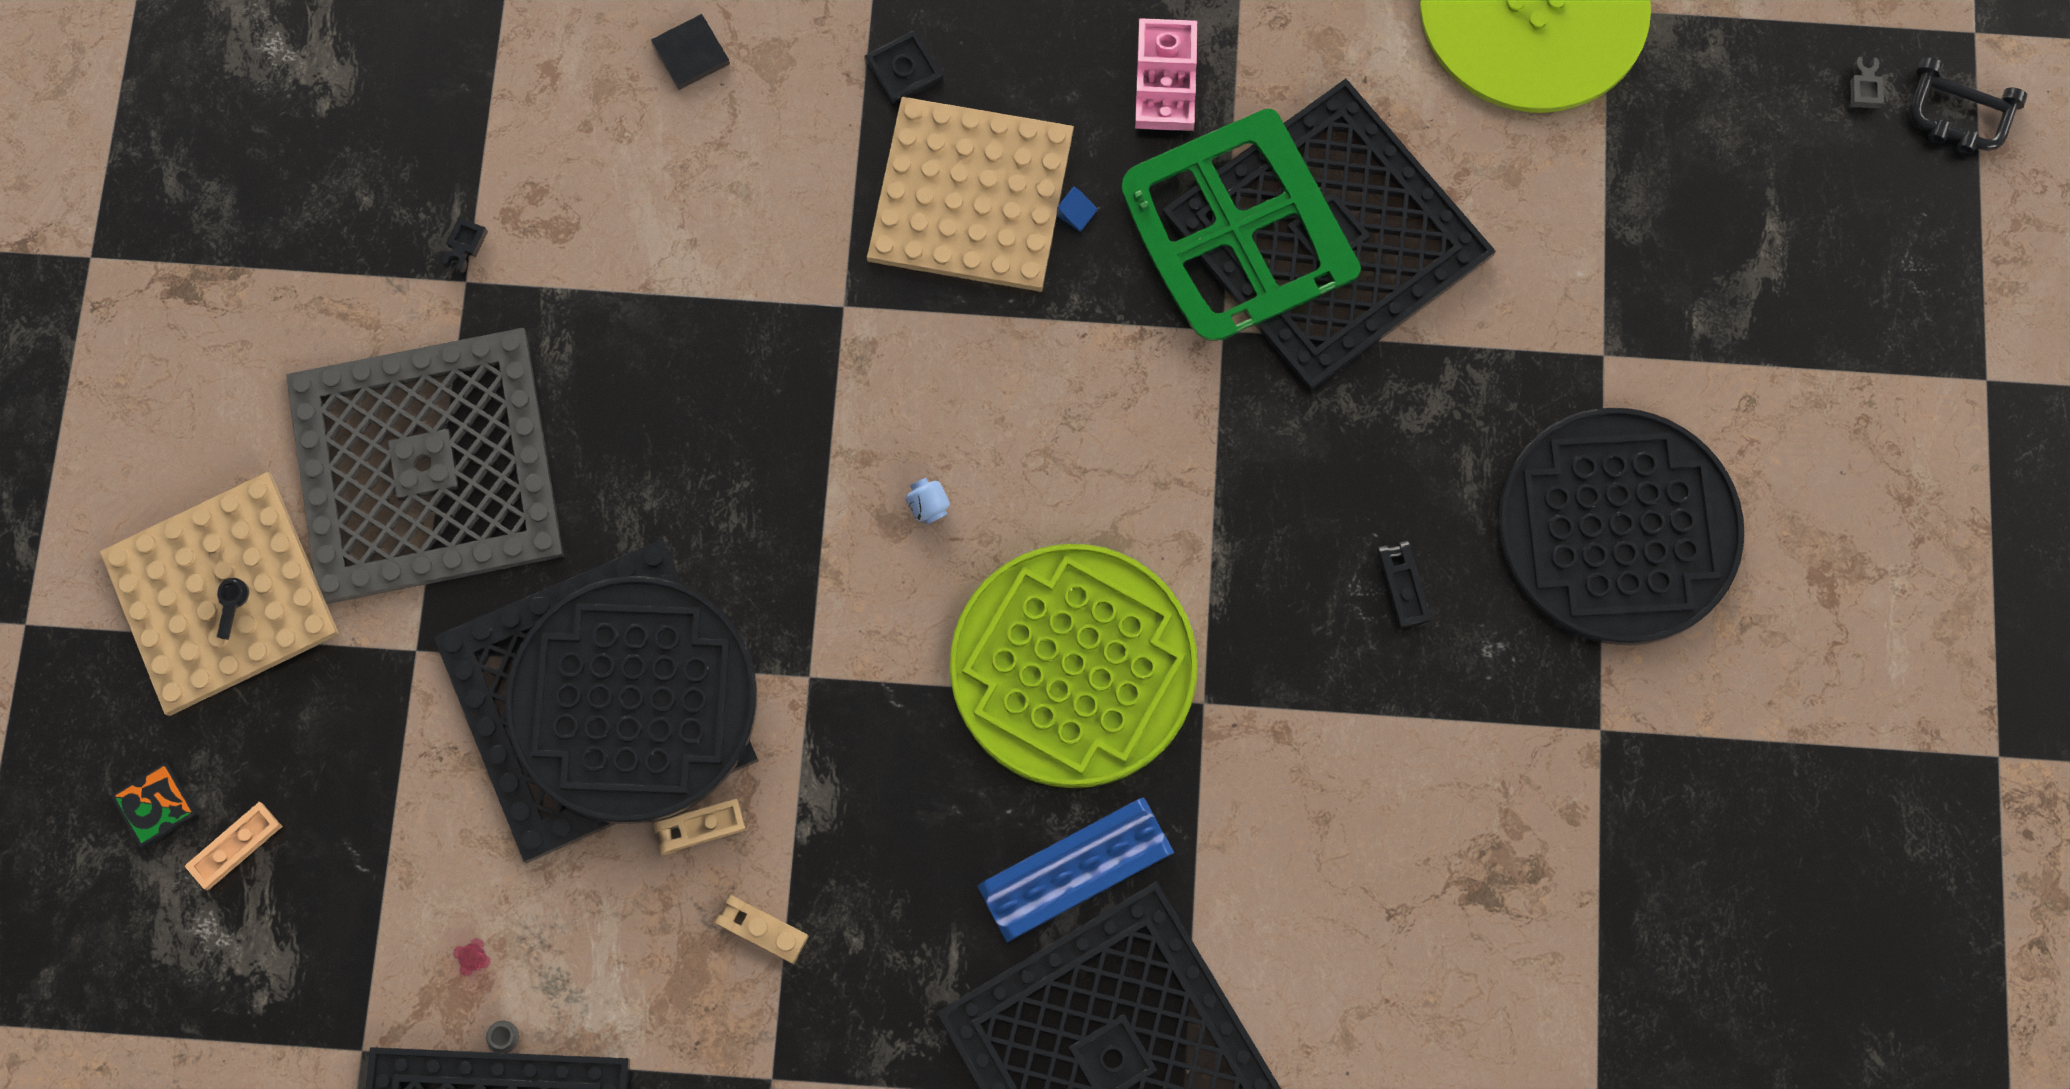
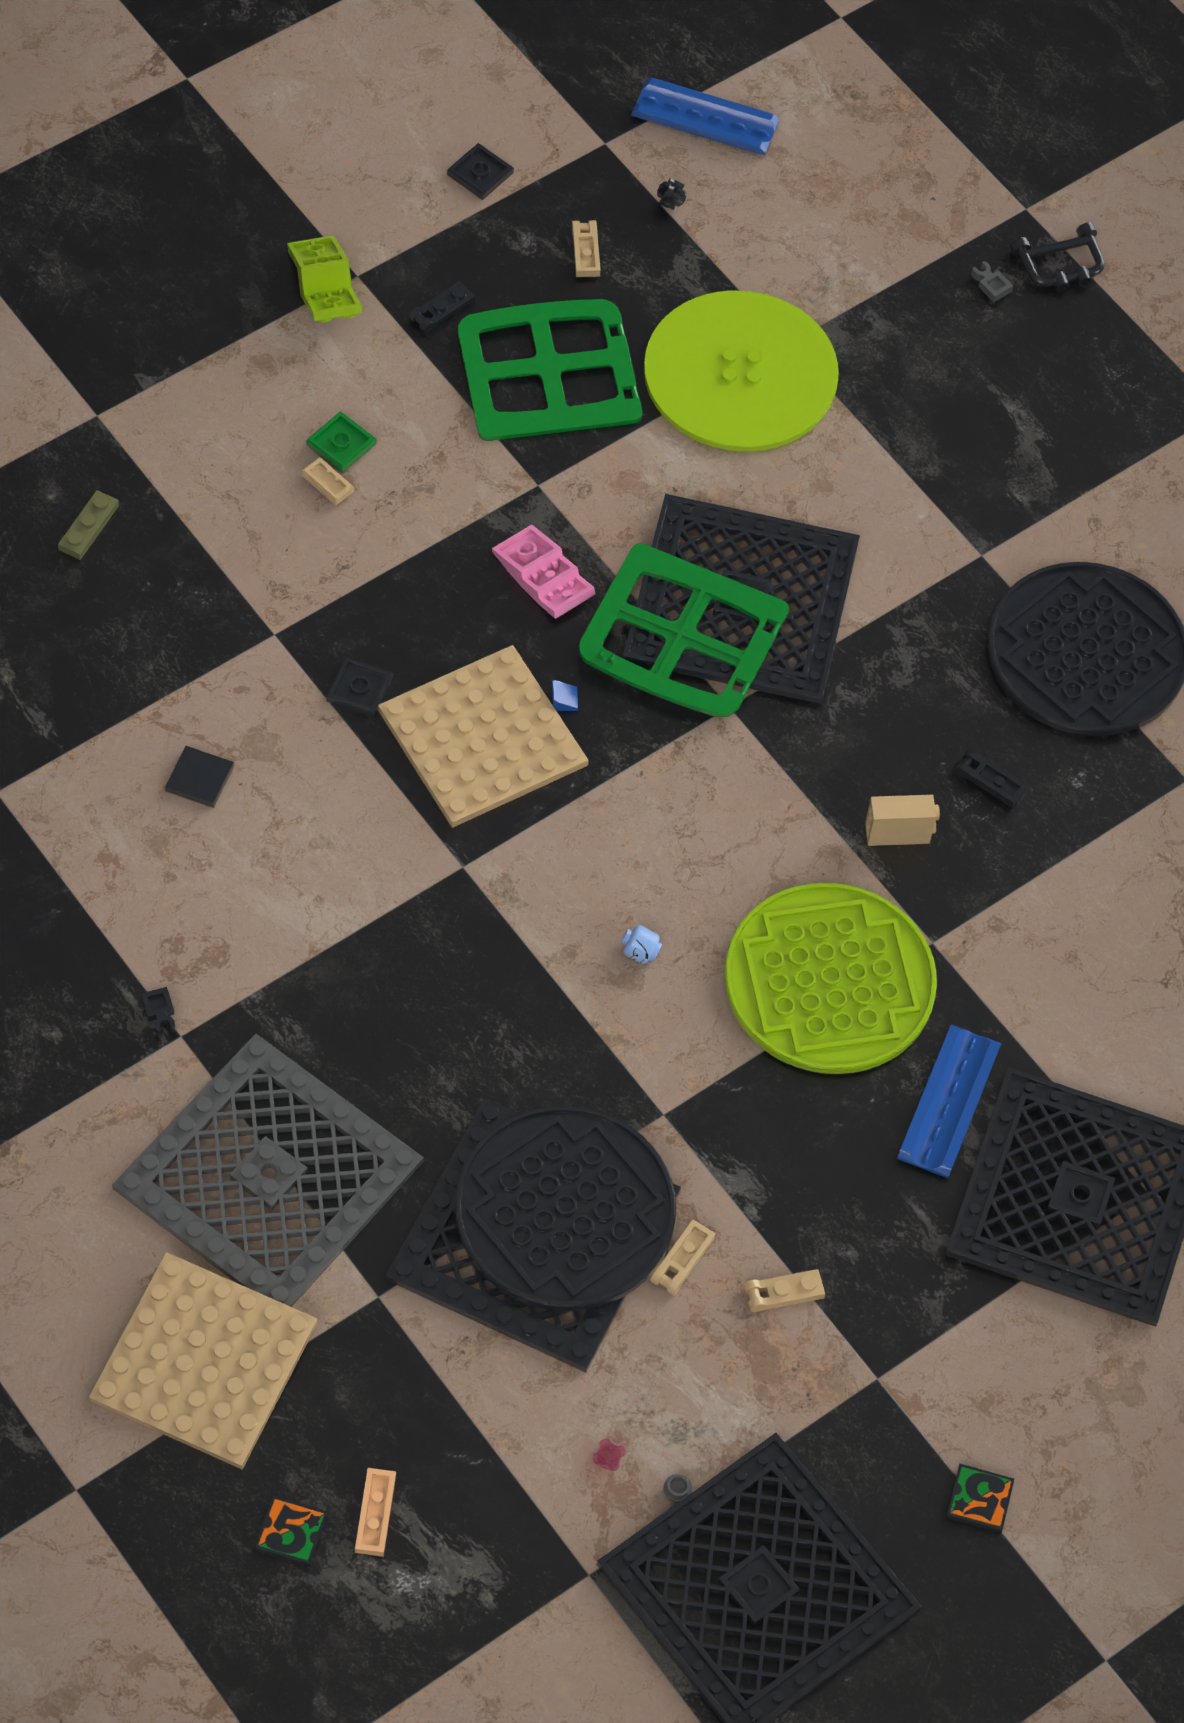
camera: 45 degrees left, 15 degrees down
(232, 595) = (223, 1345): black plate -> none
(1272, 563) = (901, 820): none -> tan brick

